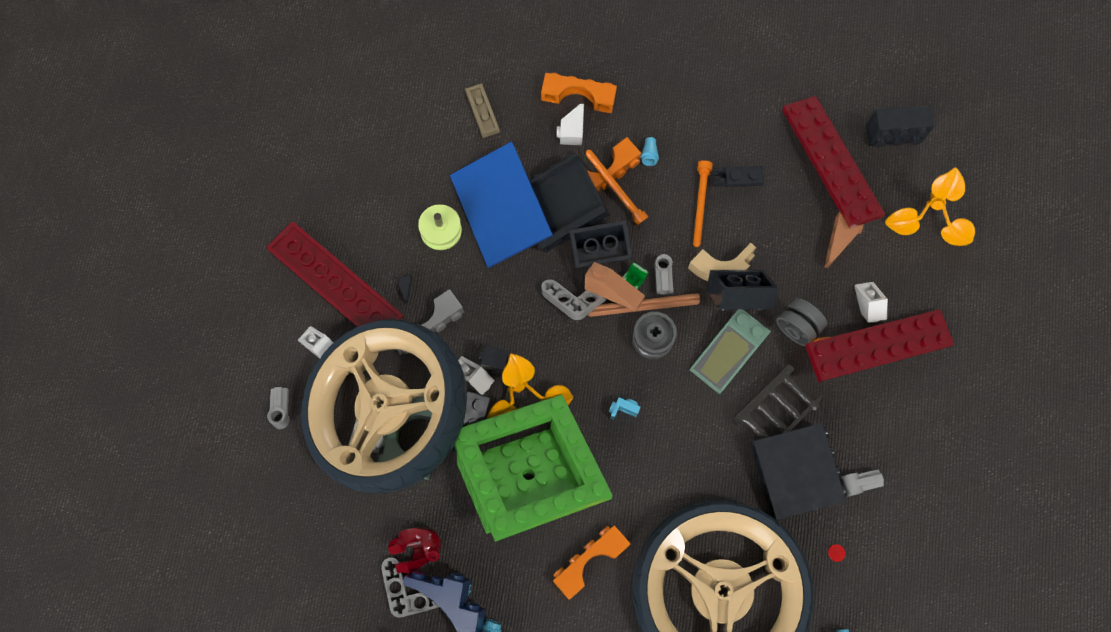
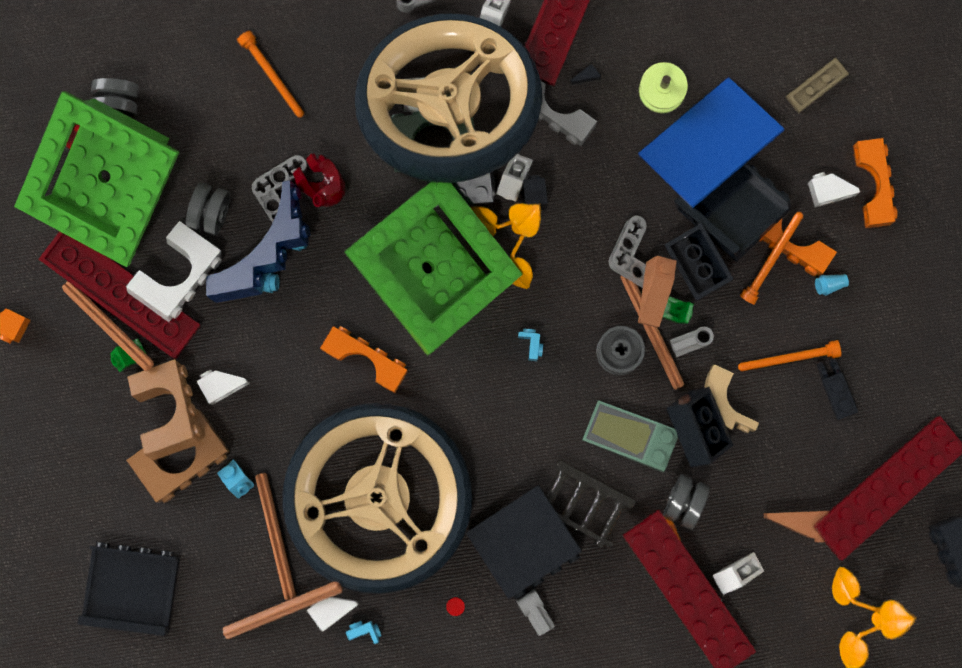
camera: 75 degrees right, 10 degrees up
(258, 575) = (248, 41): none -> orange piece

